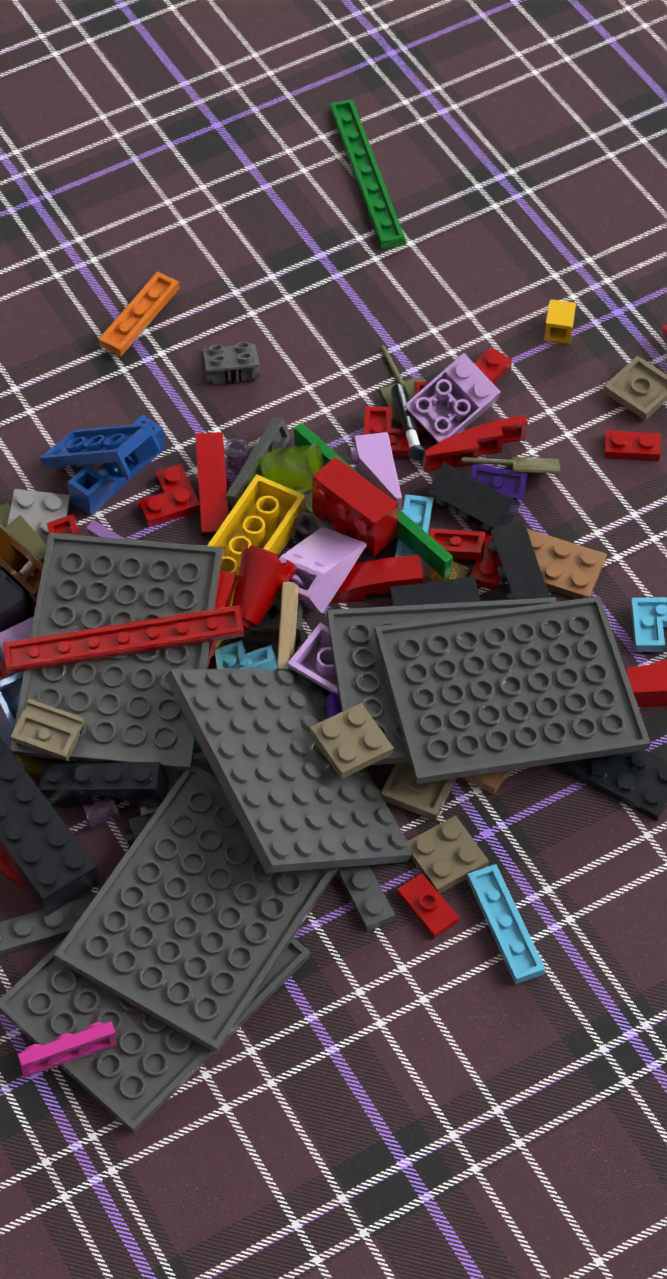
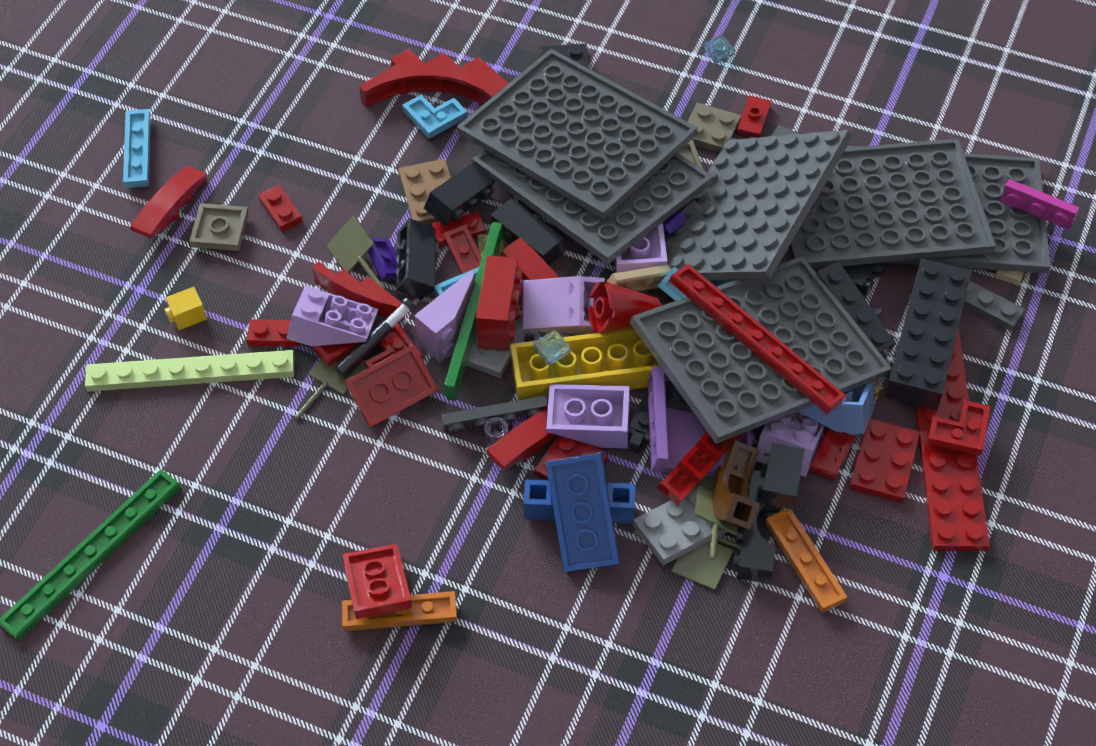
camera: 125 degrees left, 0 degrees up
(48, 729) = (861, 343): dark tan plate -> none
(172, 304) = (376, 581): none -> red plate
(189, 513) = (590, 414): none -> lavender slope
(228, 358) = (398, 506): dark grey hinge -> none
(267, 511) = (552, 347): none -> clear light blue plate
(292, 465) = (486, 374): clear neon green brick -> none
(347, 407) = (391, 386): none -> red plate
(351, 740) = (700, 179): dark tan plate -> none
(493, 299) = (189, 370): none -> yellowish green plate
(506, 924) = (730, 73): medium azure plate -> none
(554, 944) = (719, 49): none -> clear light blue plate

